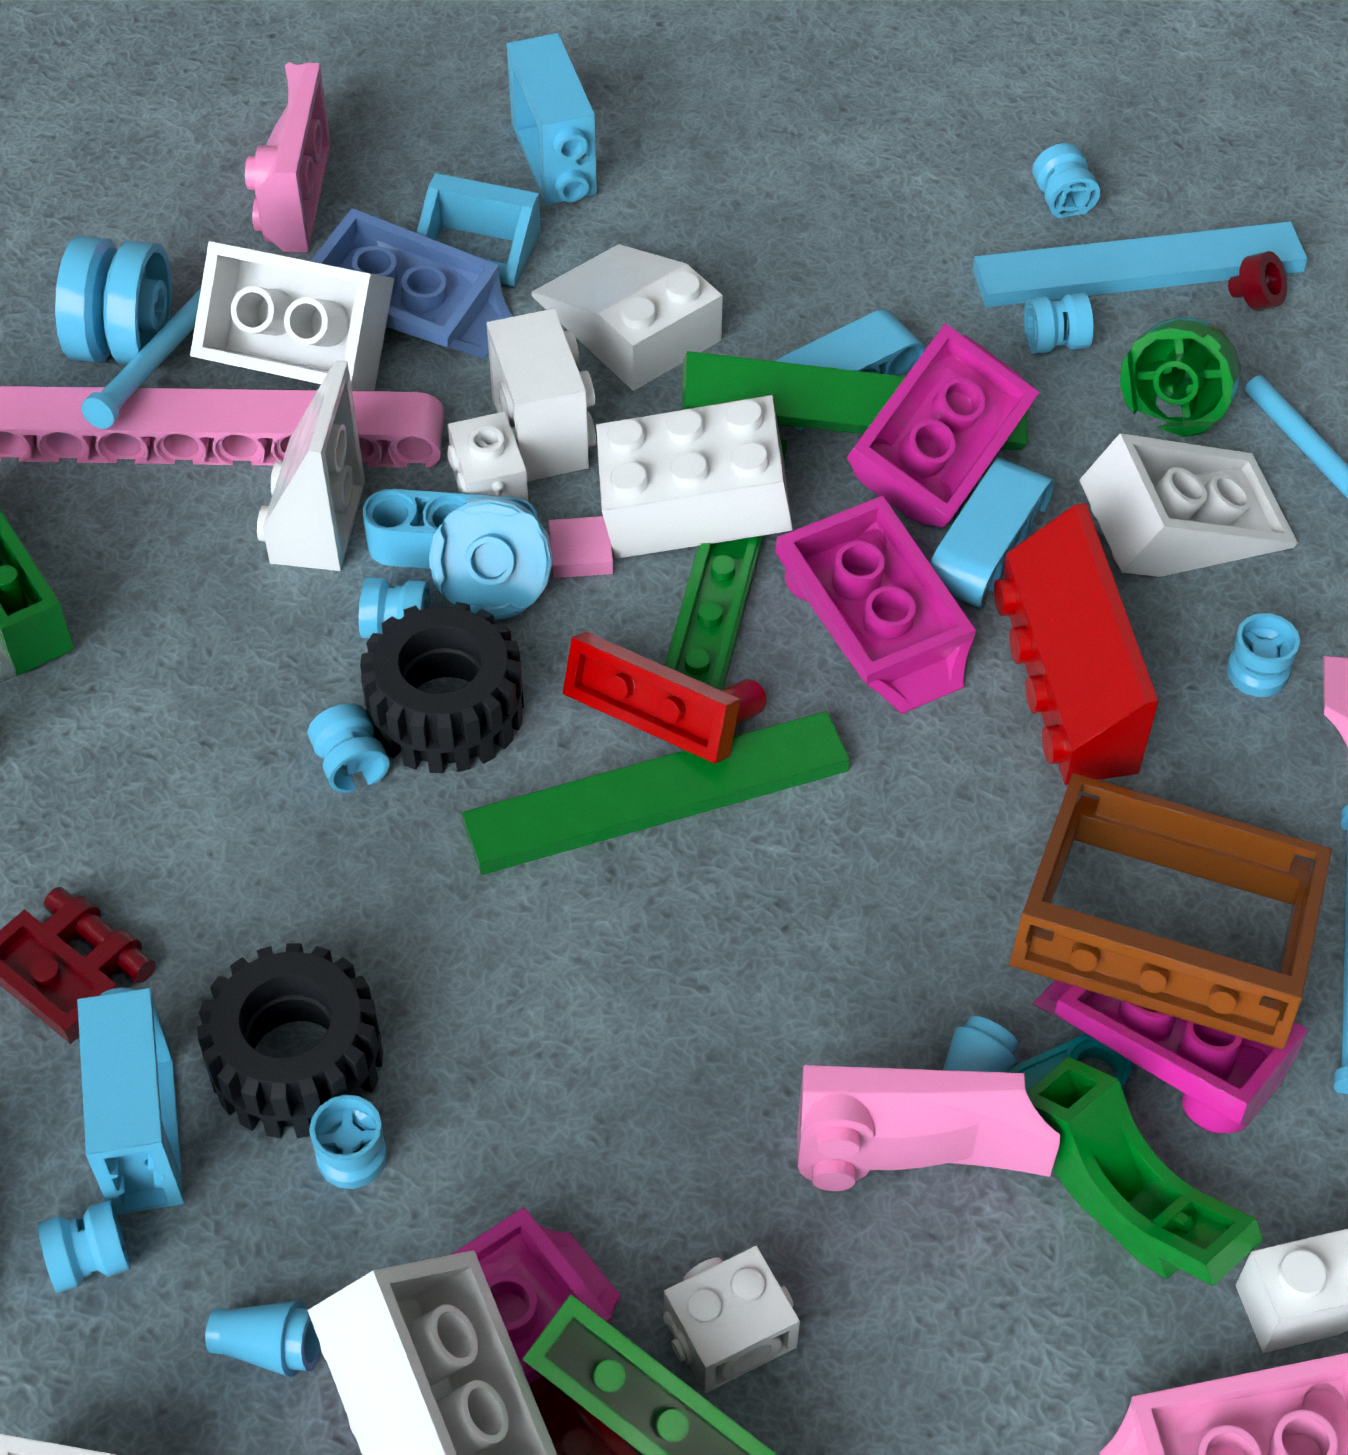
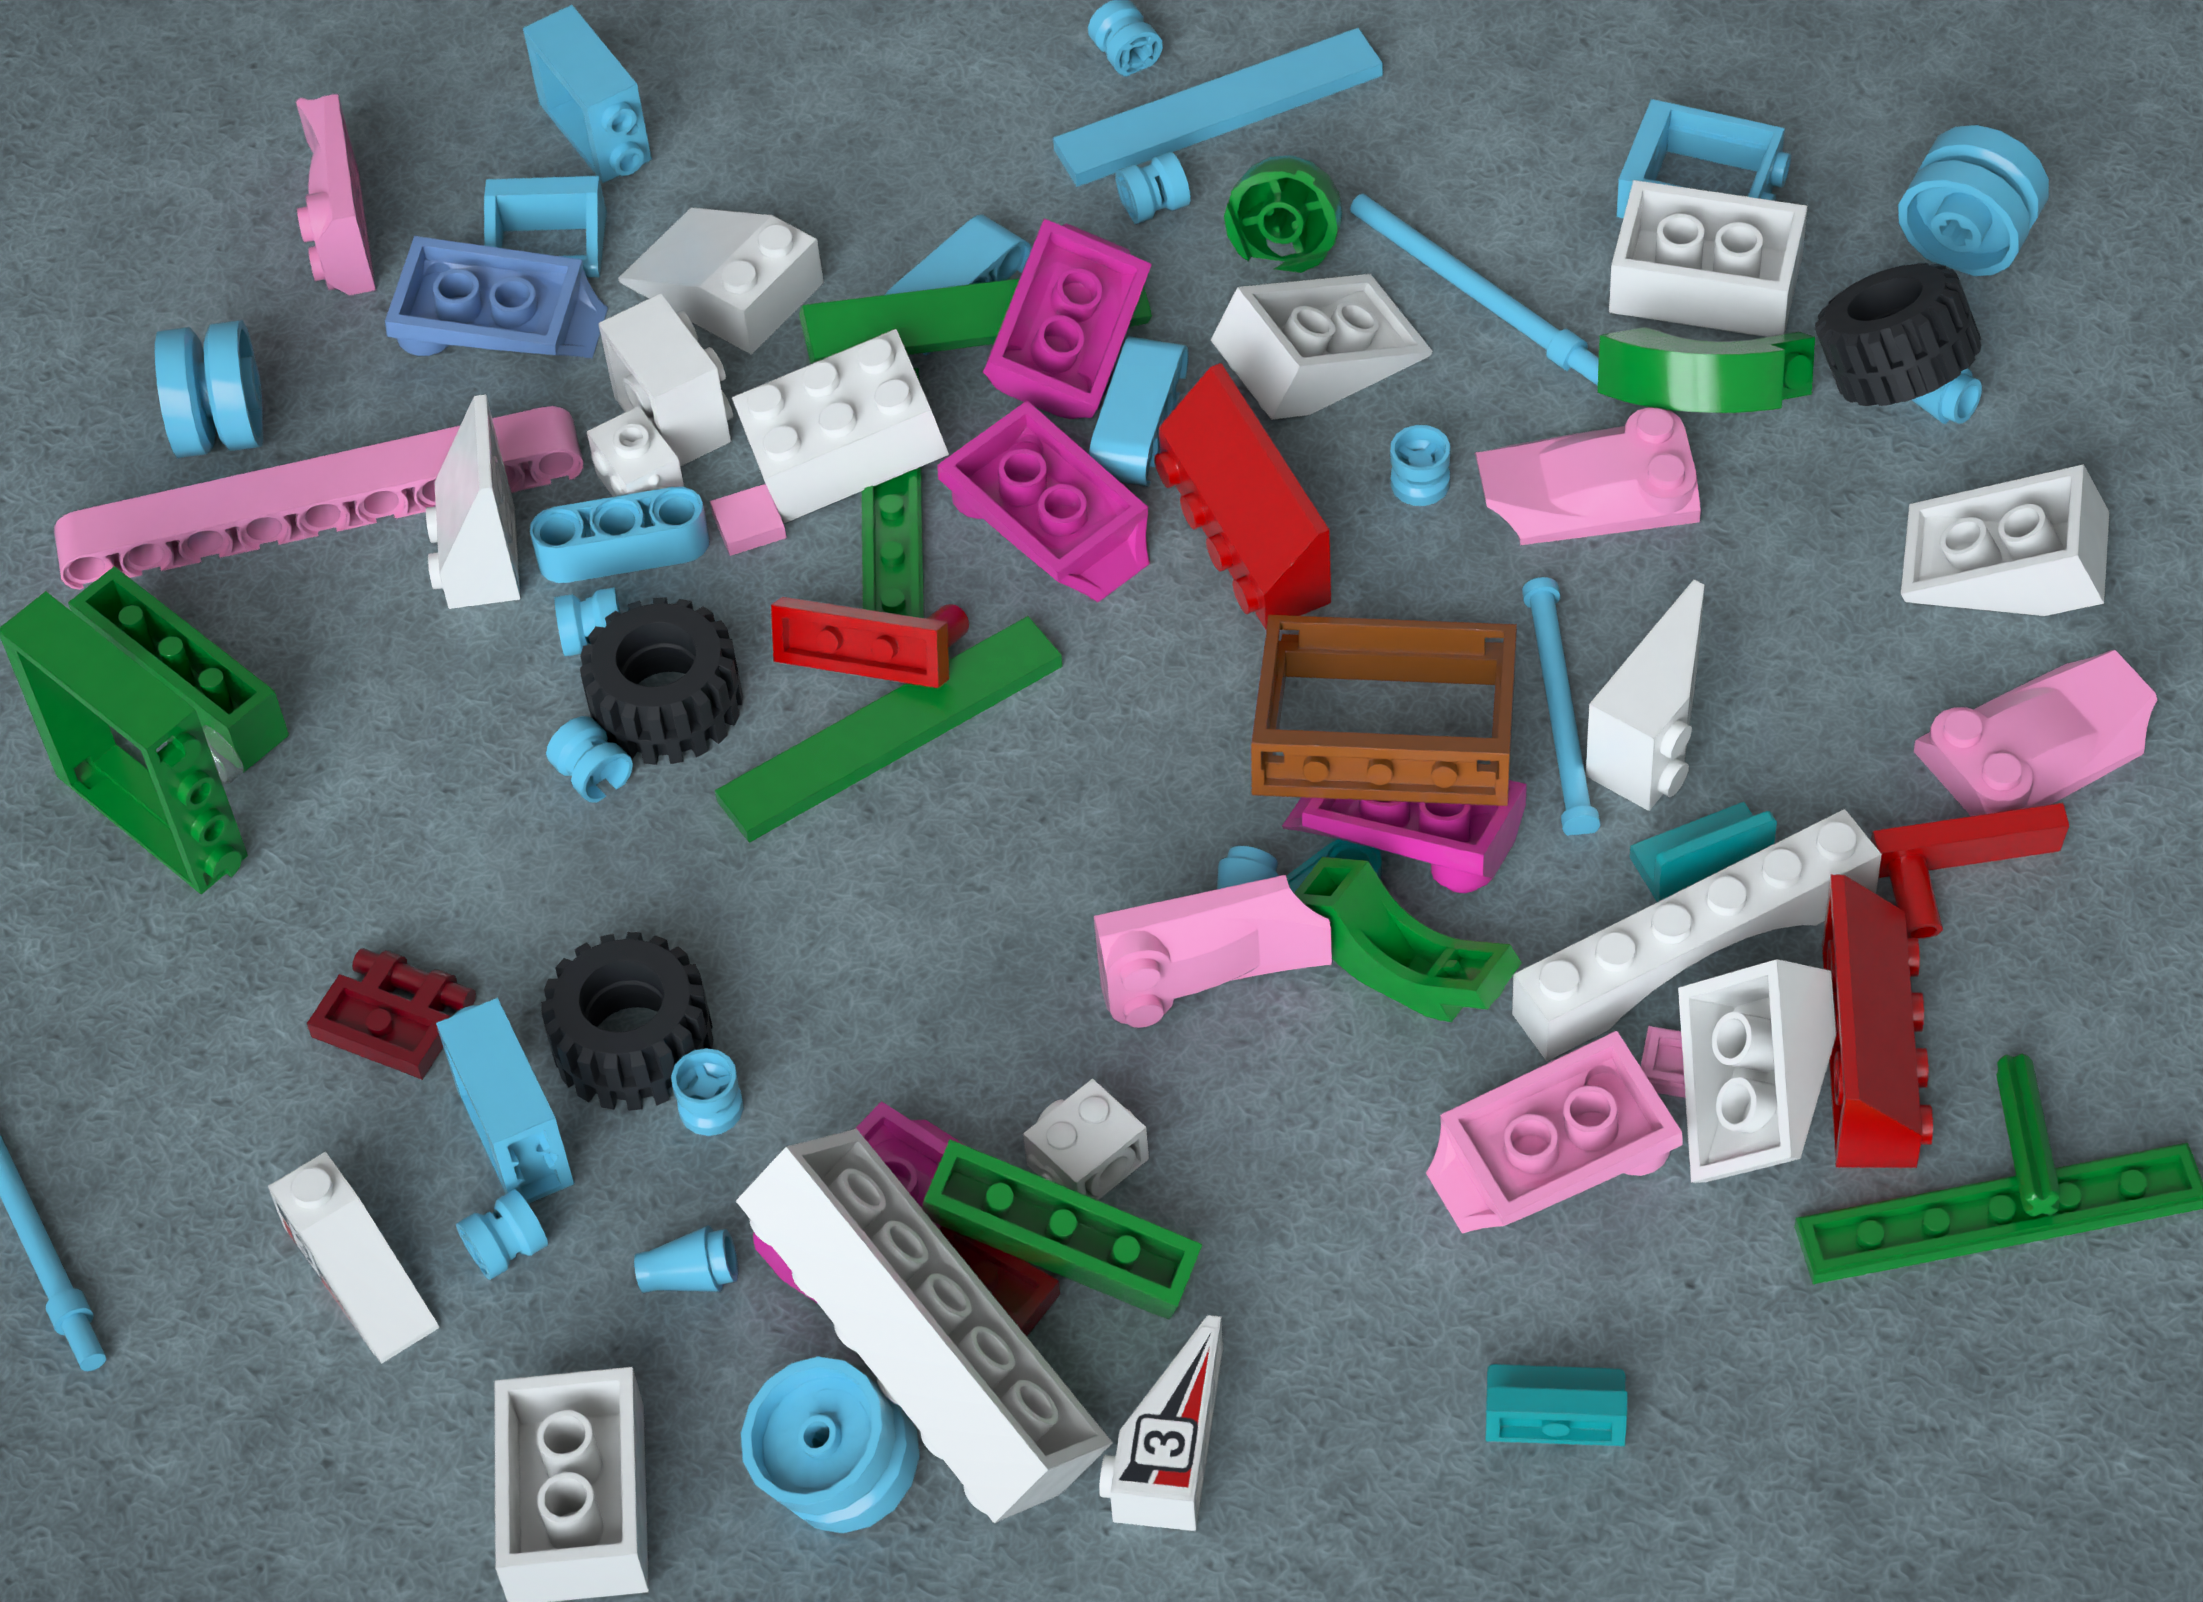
camera: 10 degrees left, 0 degrees up
(102, 407) = (242, 496): medium azure bar -> none
(290, 315) = (393, 361): white brick -> none
(491, 557) = (669, 548): medium azure tile -> none
(1260, 281) = (1341, 98): dark red tile -> none

